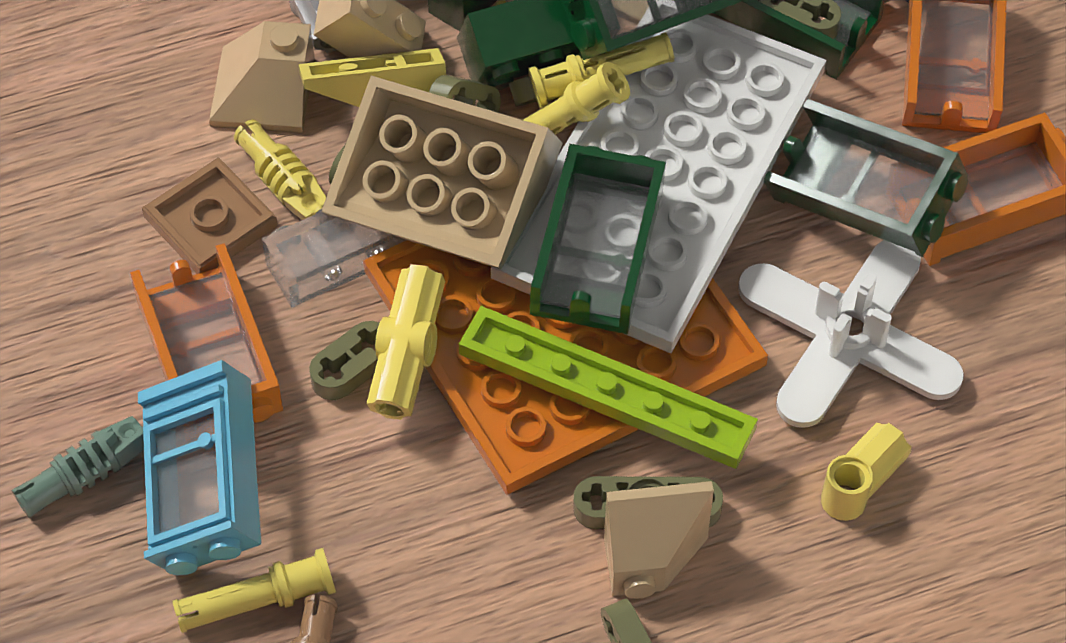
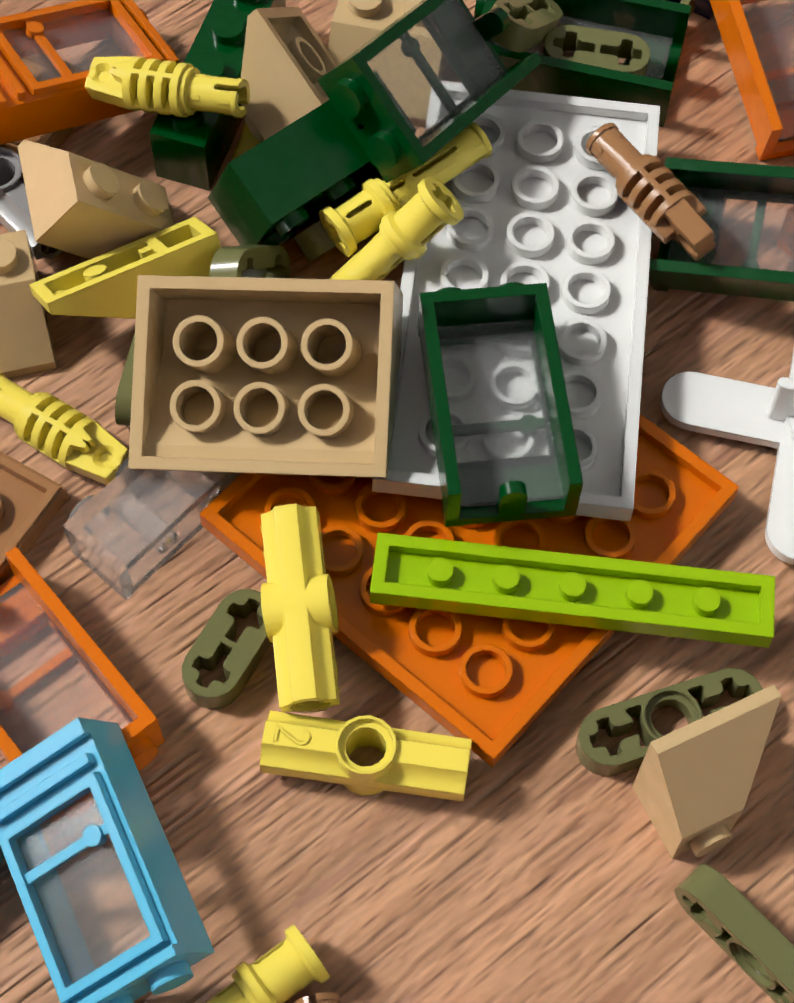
camera: 20 degrees left, 5 degrees up
(442, 471) = (322, 746): none -> light yellow piece
(784, 120) = (653, 192): none -> medium nougat hinge

